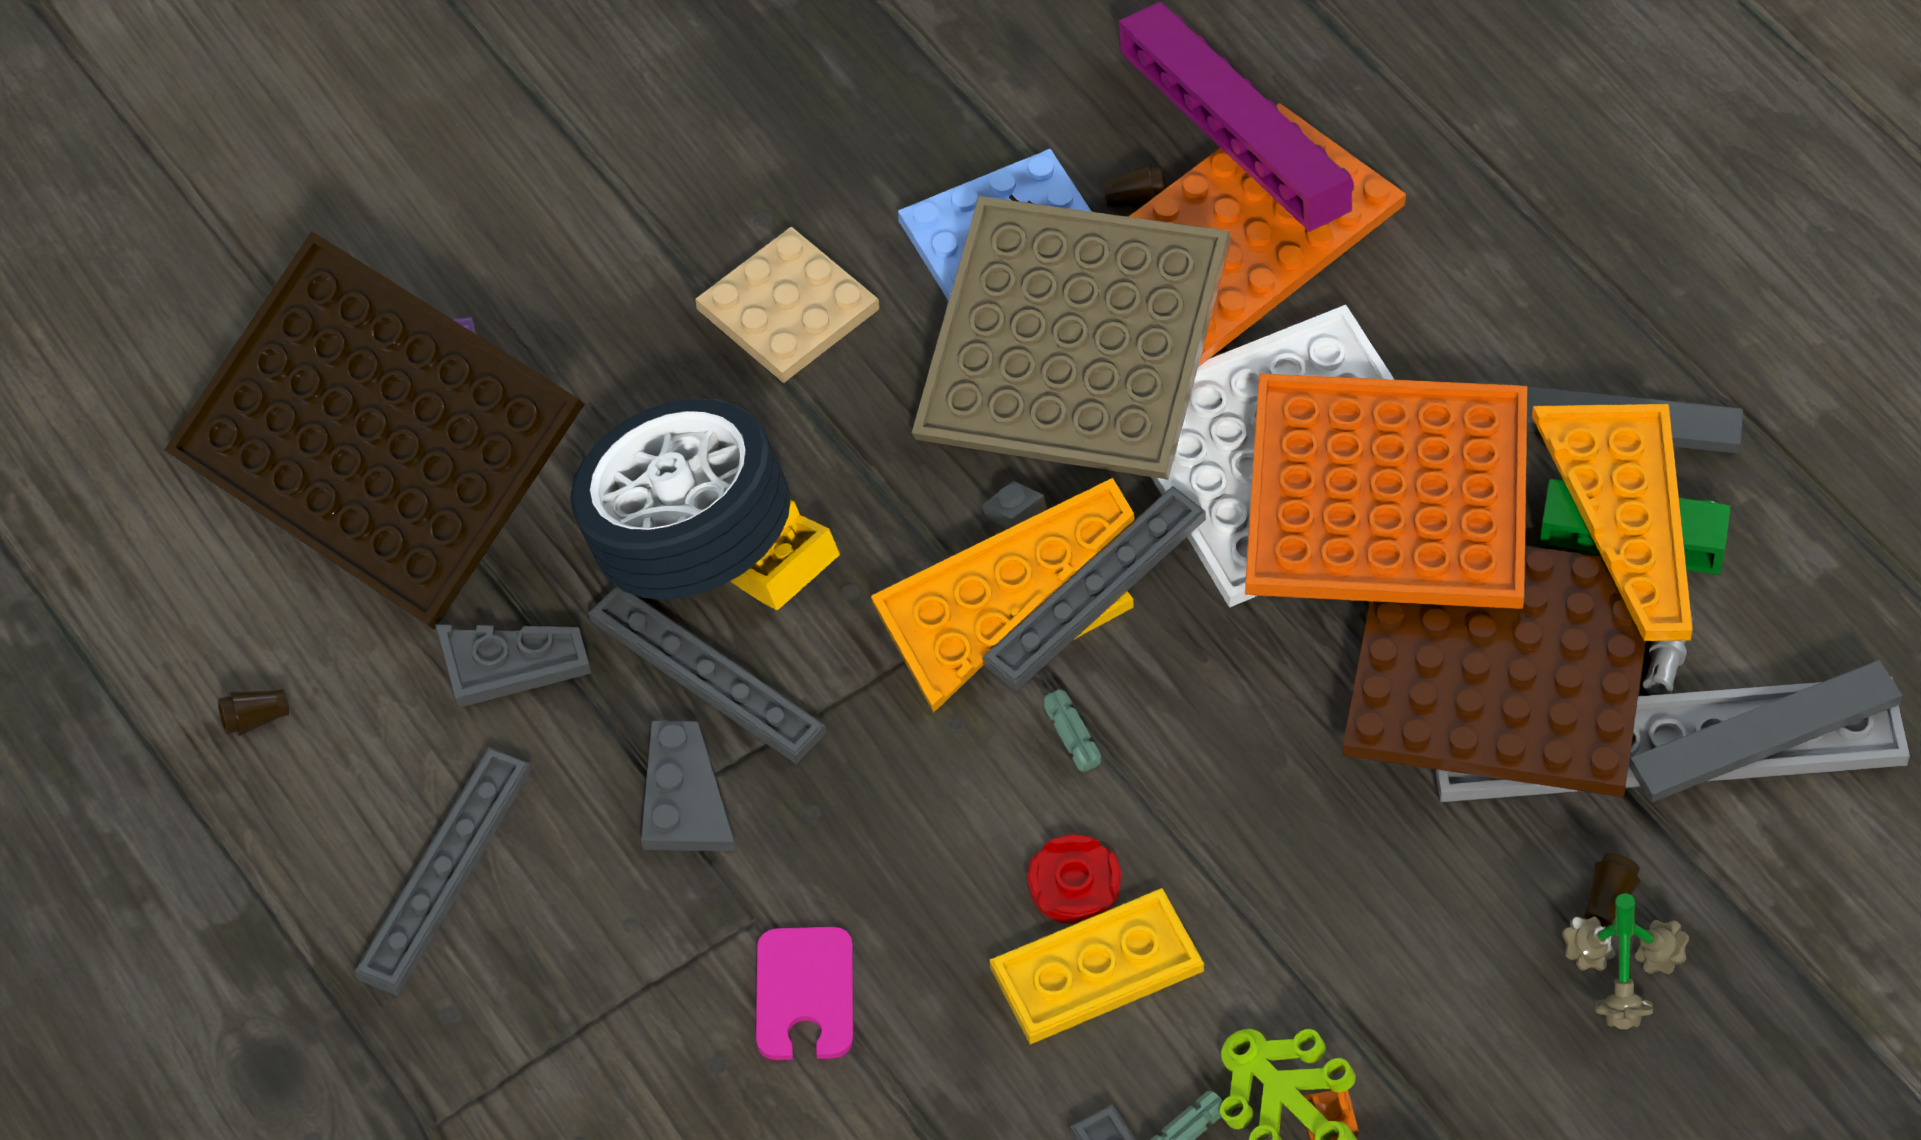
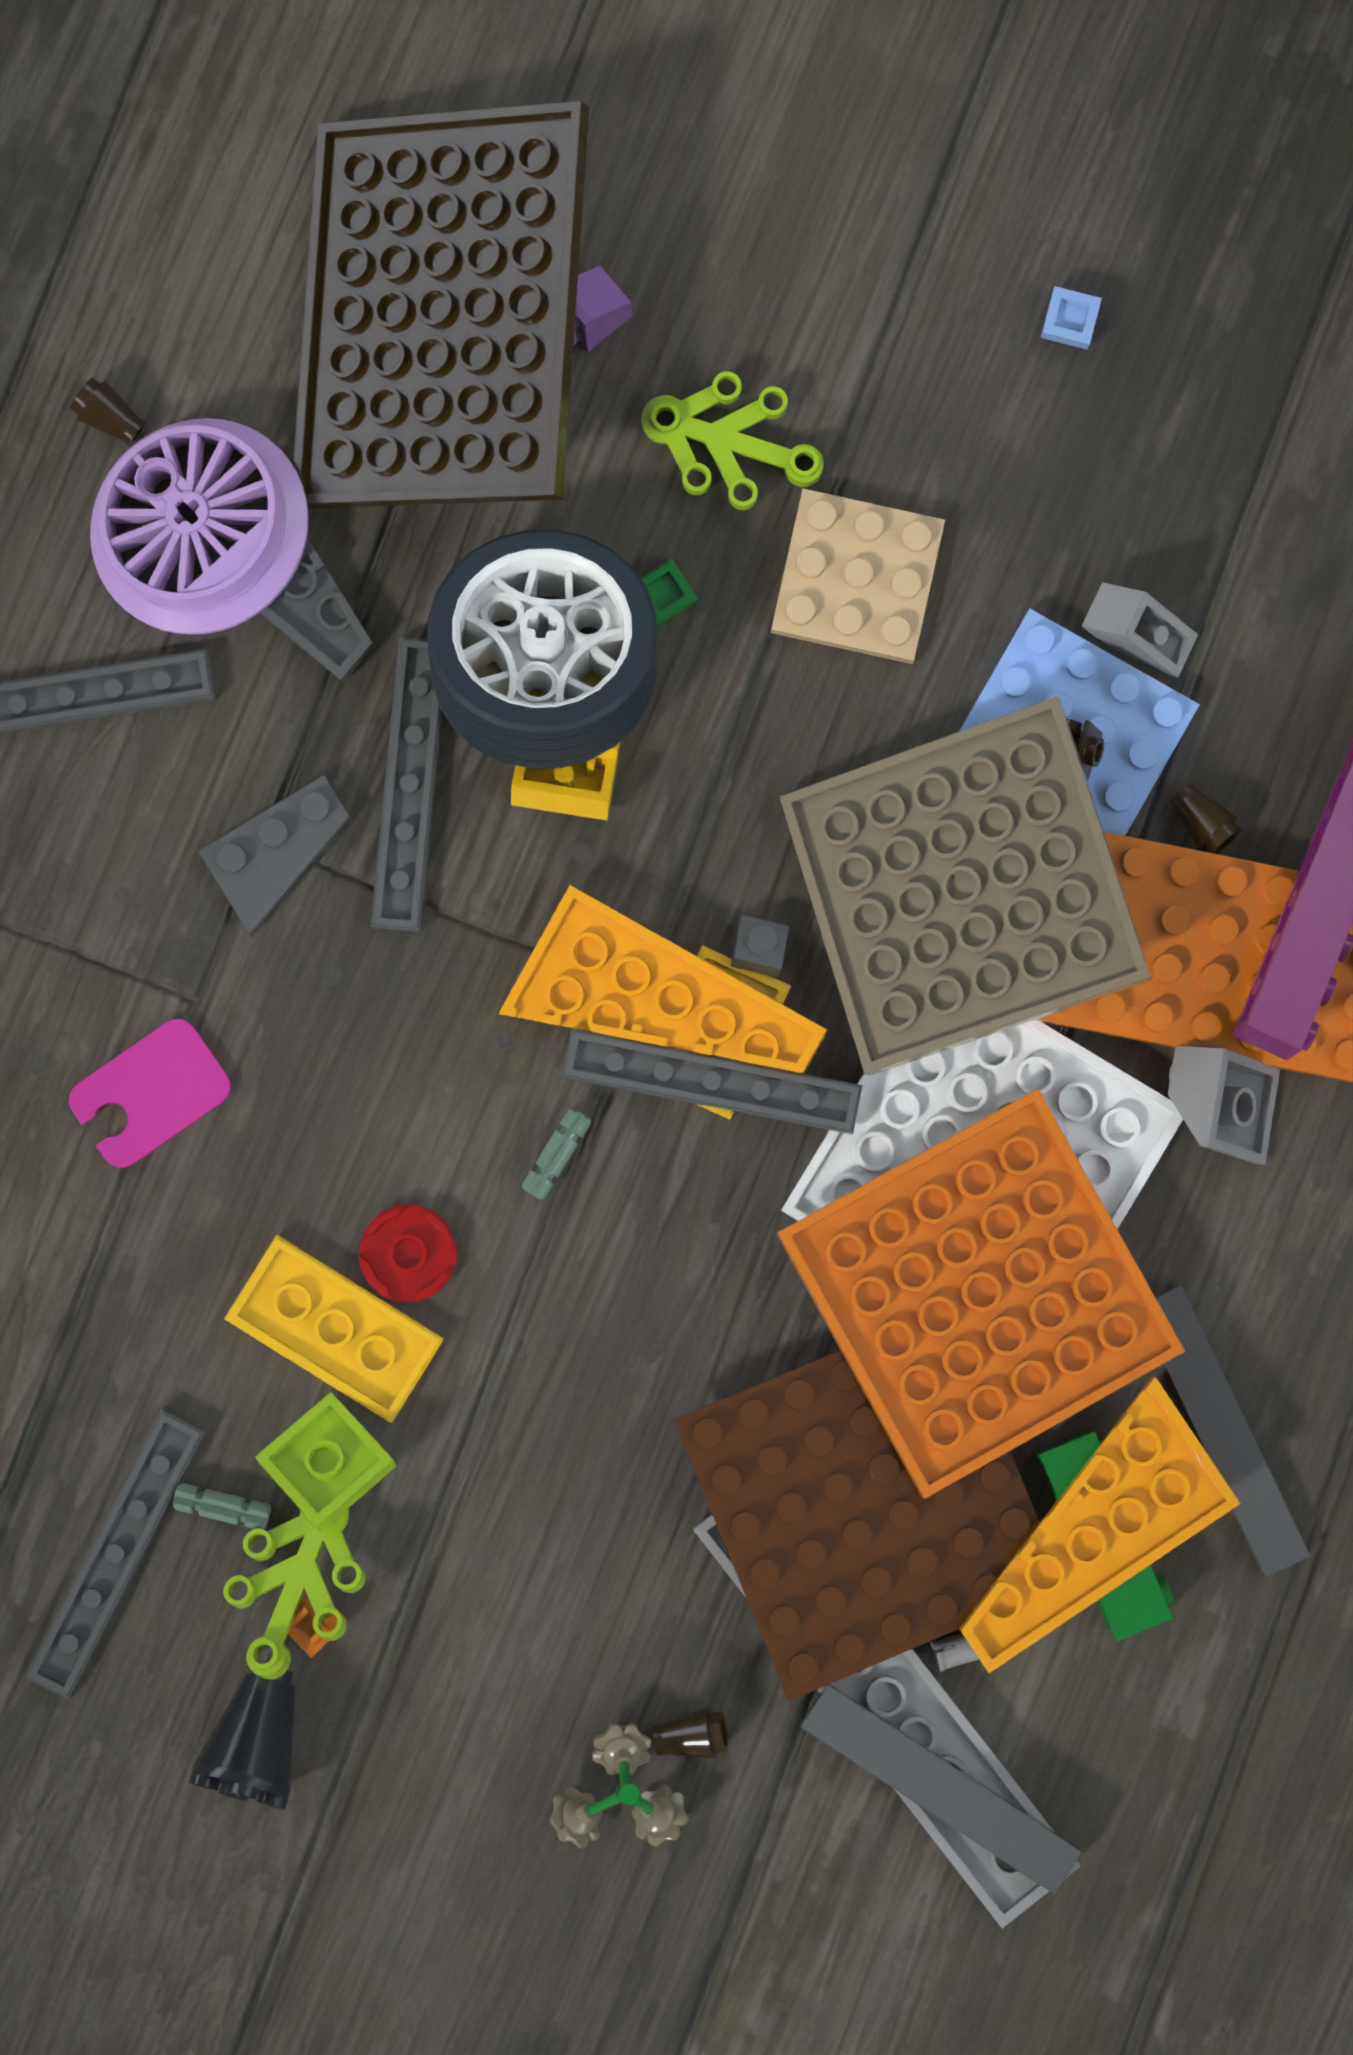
camera: 55 degrees right, 30 degrees up
(385, 690) = (245, 575): none -> lavender piece
(621, 328) = (724, 438): none -> lime plant
(710, 79) = (1071, 317): none -> light blue plate
(964, 151) = (1140, 628): none -> light grey slope
(1201, 1017) = (325, 1461): none -> lime plate
(1348, 276) = (1225, 1100): none -> light grey slope

